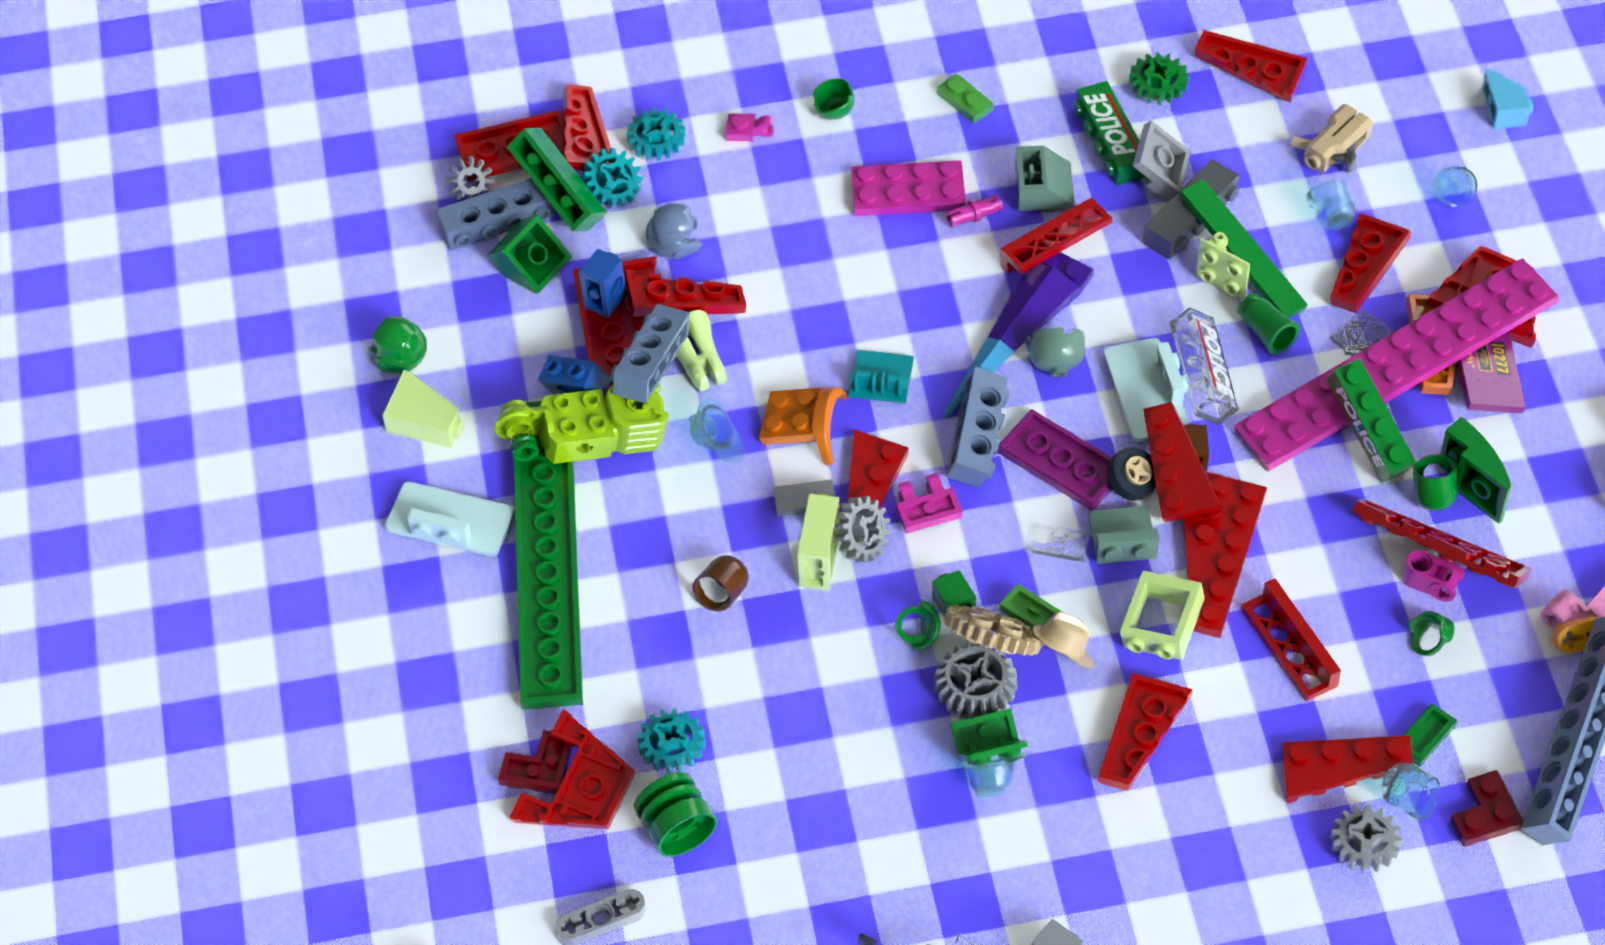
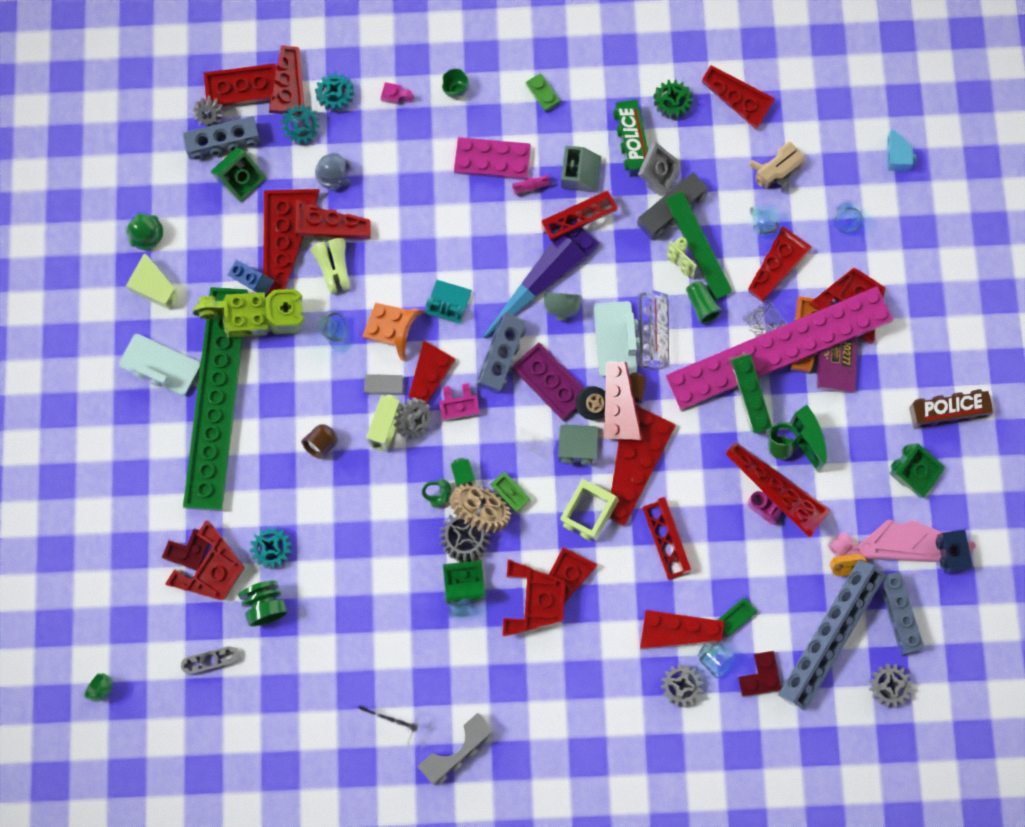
camera: 10 degrees right, 20 degrees up
(520, 443) = (211, 325): green bush -> none
(556, 179) = (261, 123): green brick -> none
(602, 282) = (278, 210): blue brick -> none
(650, 353) = (288, 296): sand blue brick -> none
(1066, 635) = (524, 520): tan piece -> none
(1119, 744) = (543, 600): none -> red wing
(1421, 624) = (751, 540): green piece -> none

